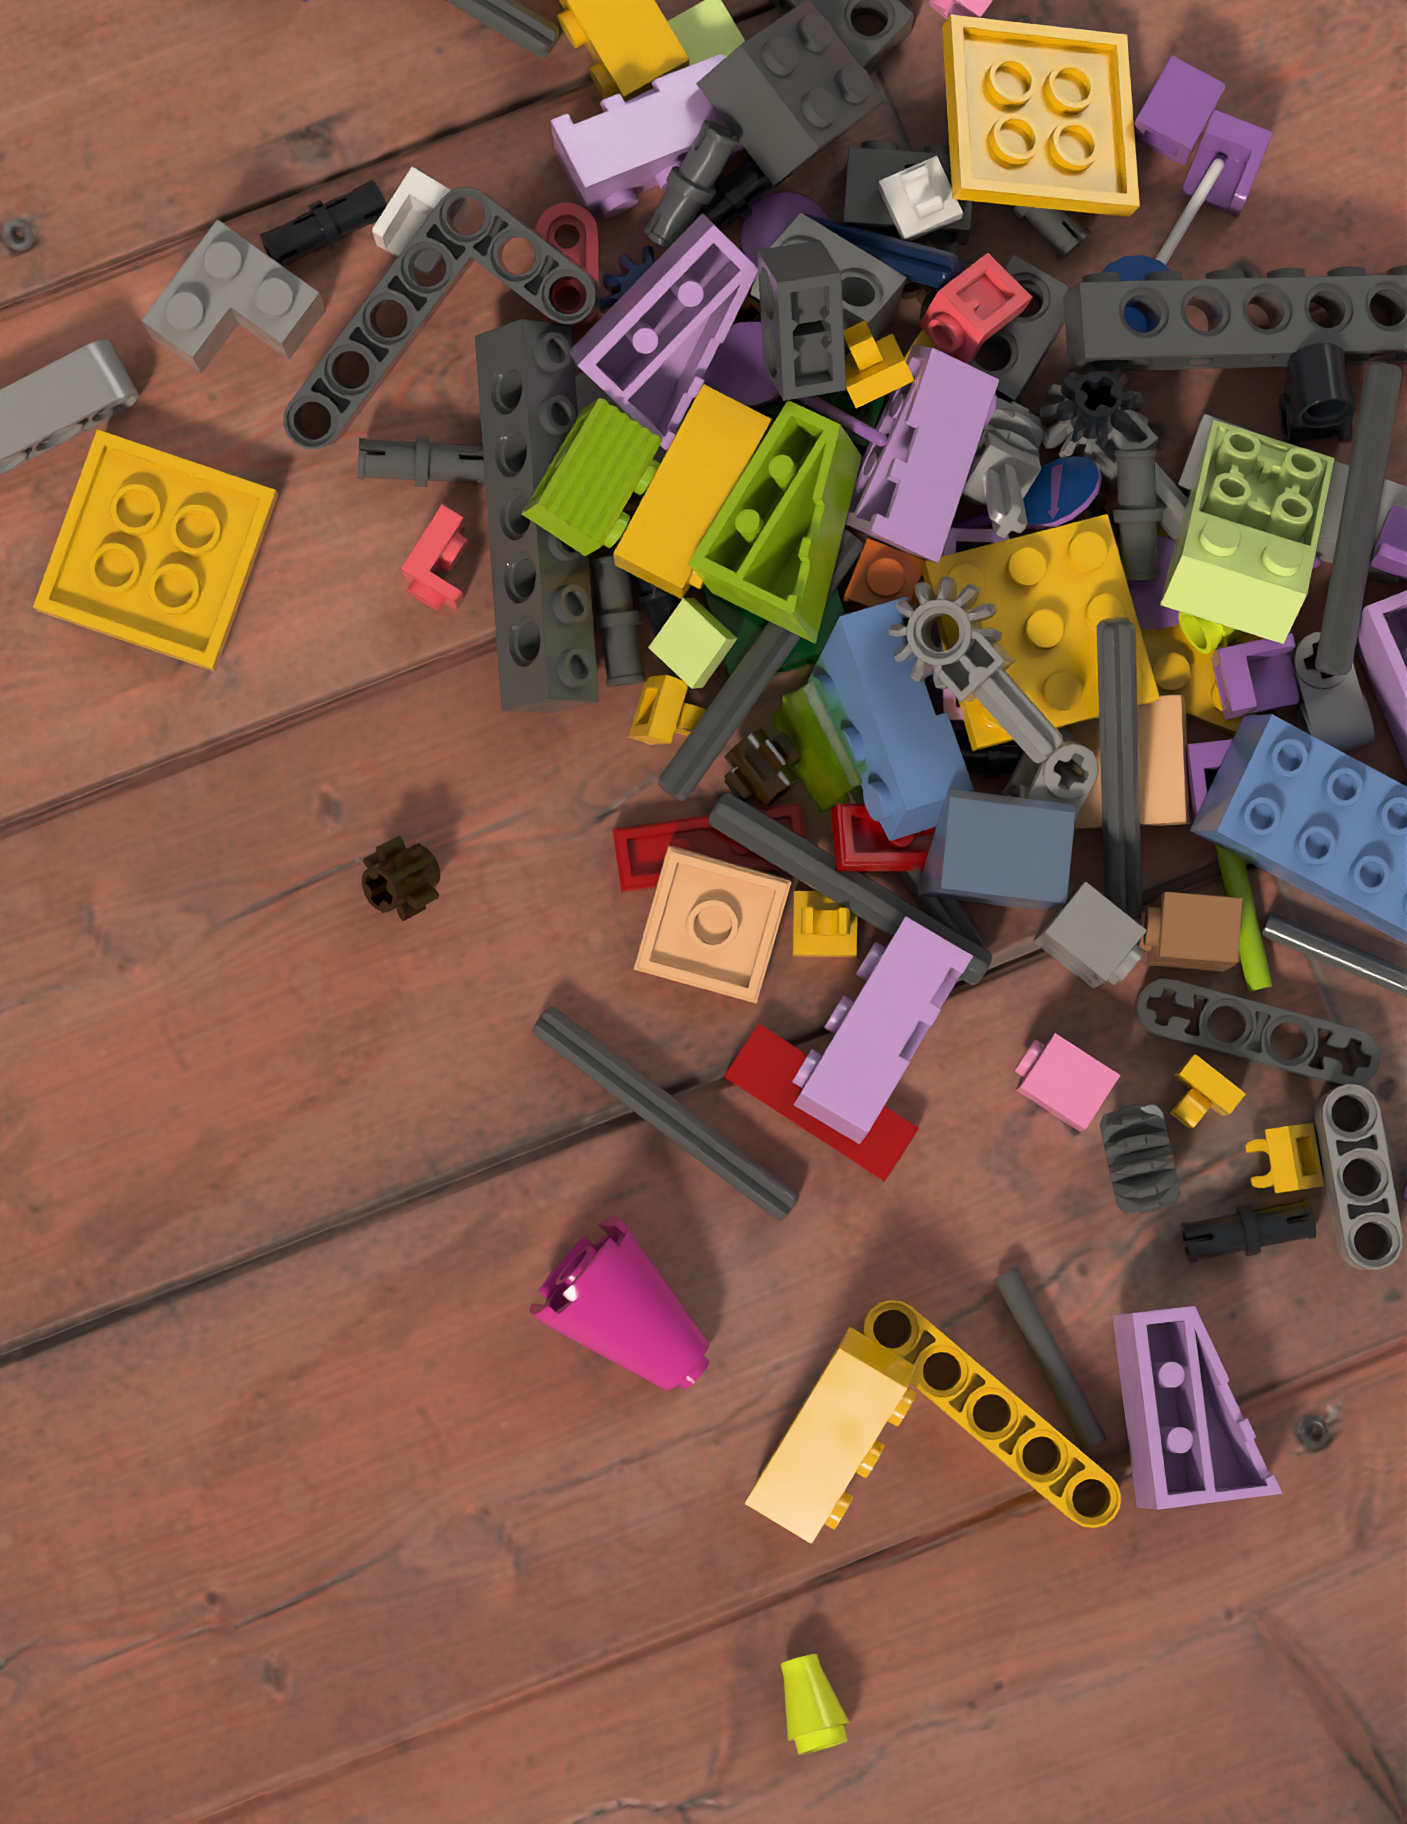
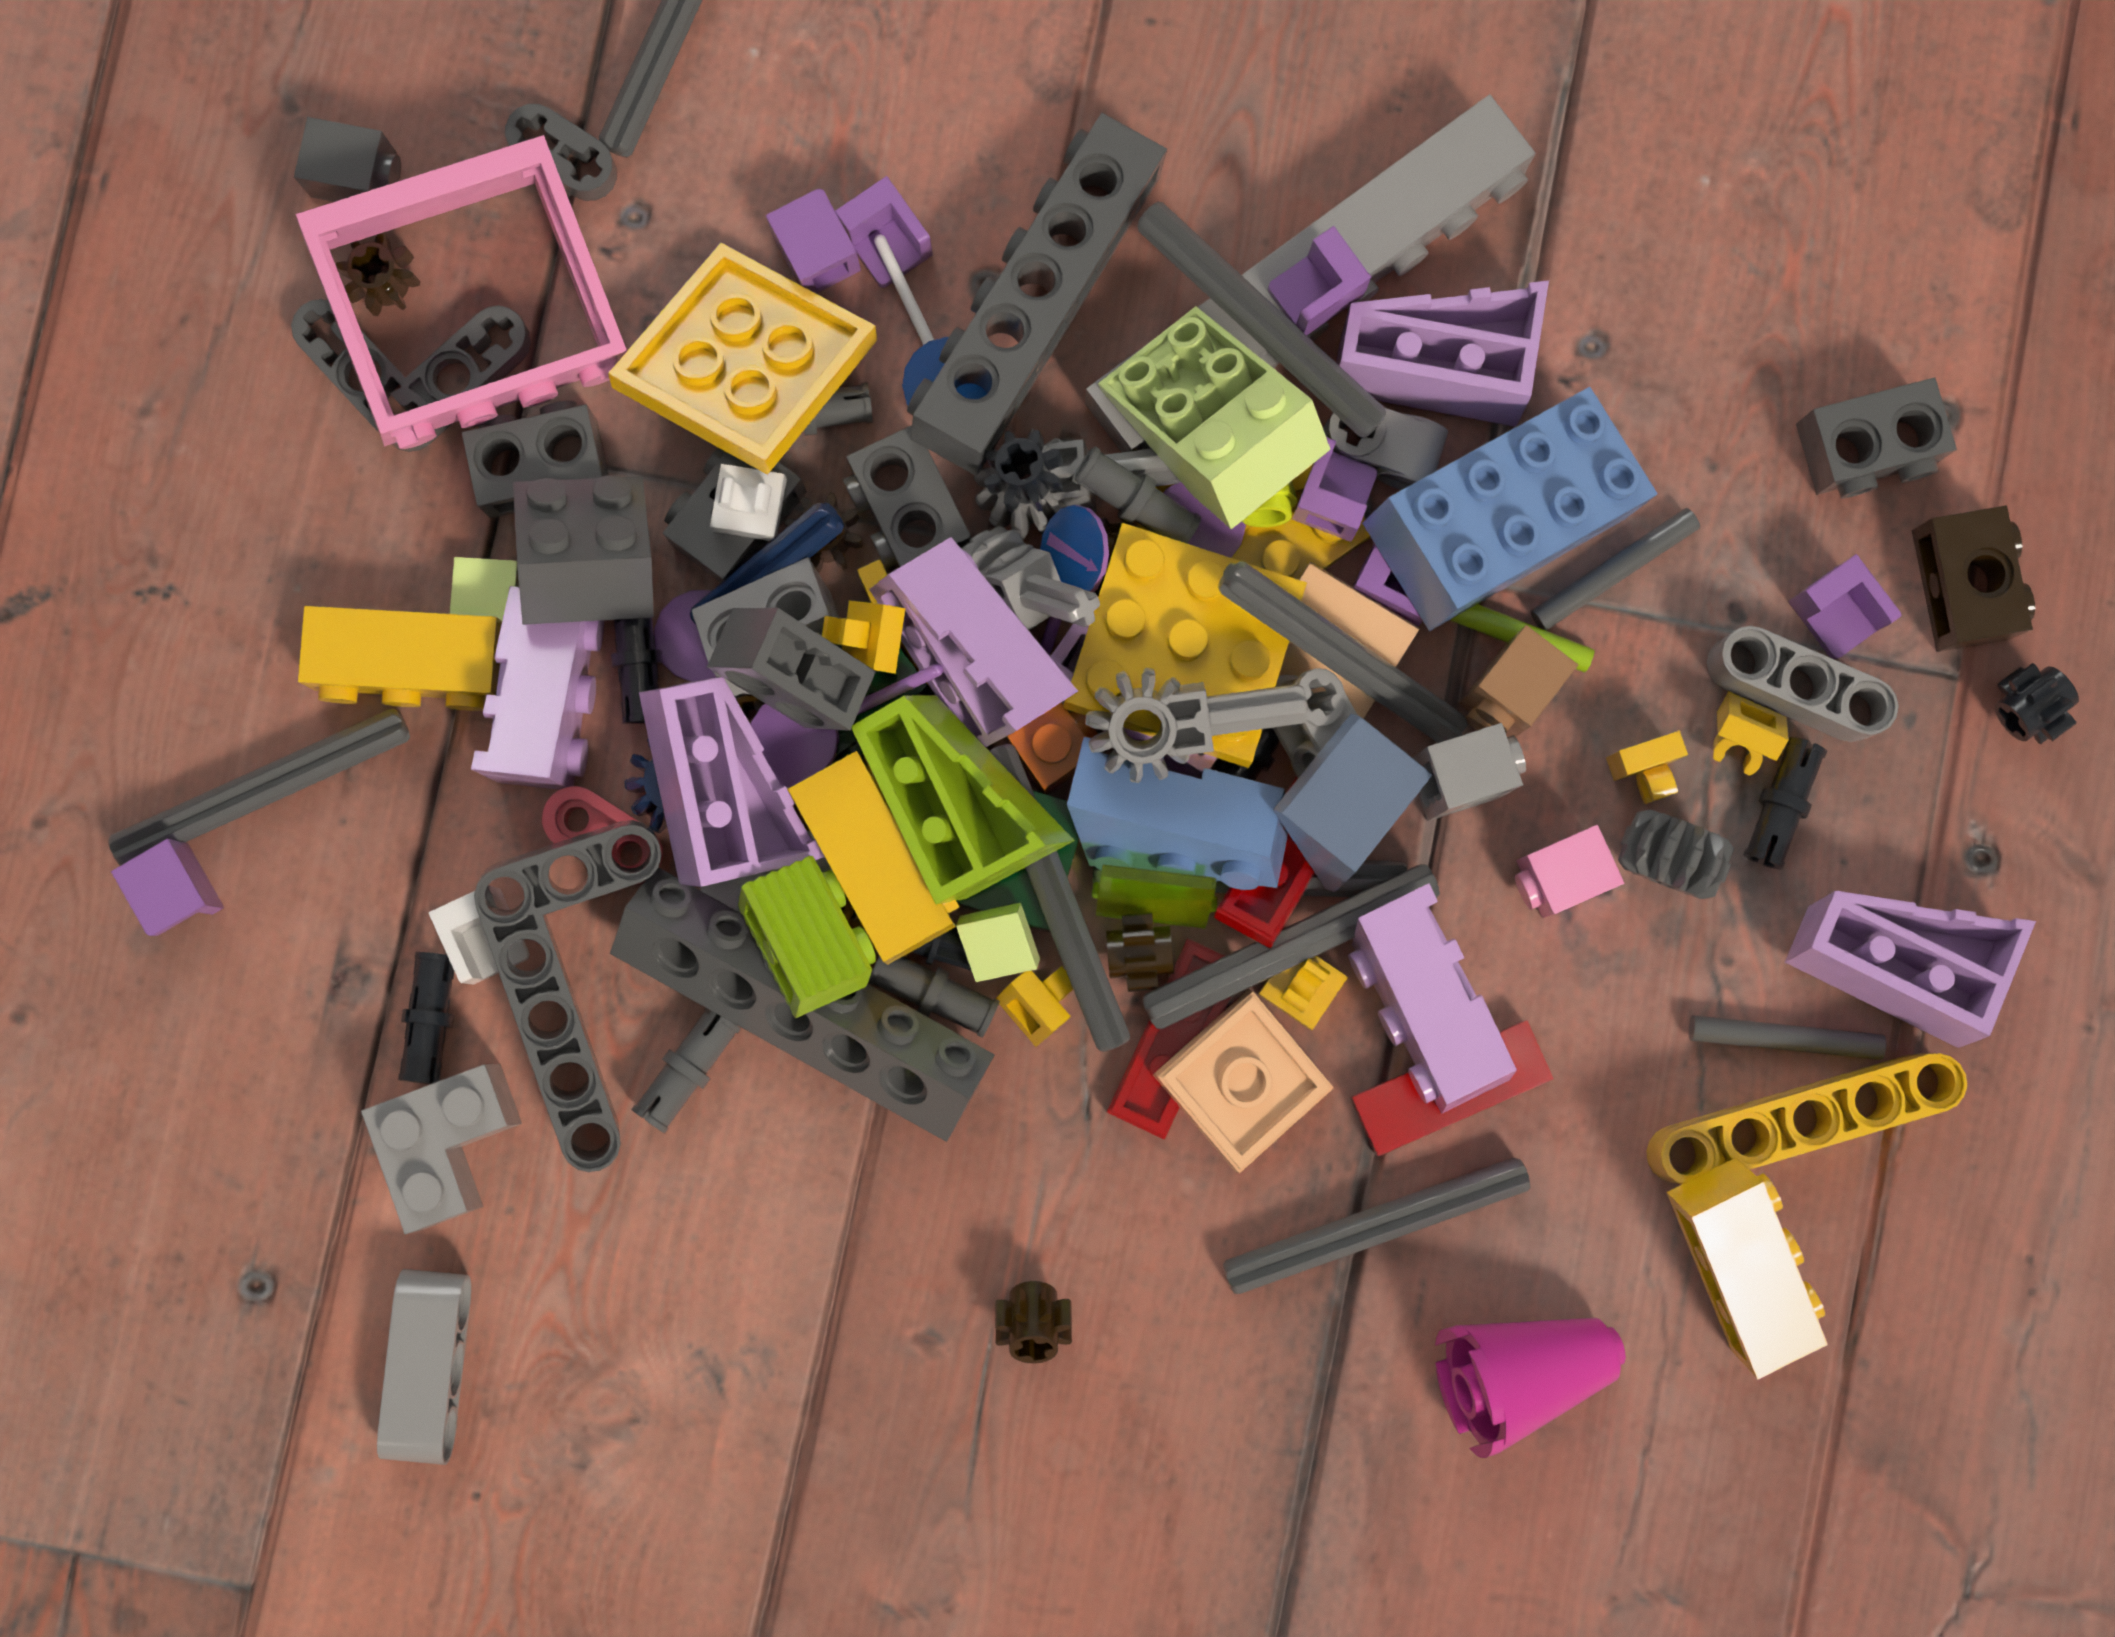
camera: 60 degrees left, 0 degrees up
(155, 550) = (610, 1348): yellow plate -> none
(436, 549) = (770, 1103): coral bracket -> none
(691, 183) = (605, 685): dark grey pin -> none
(812, 1709) = (1958, 1431): neon yellow cone -> none
(973, 308) = (873, 519): coral bracket -> none
(1255, 1039) = (1623, 686): dark grey beam -> none
(1316, 396) = (1133, 287): black piece -> none

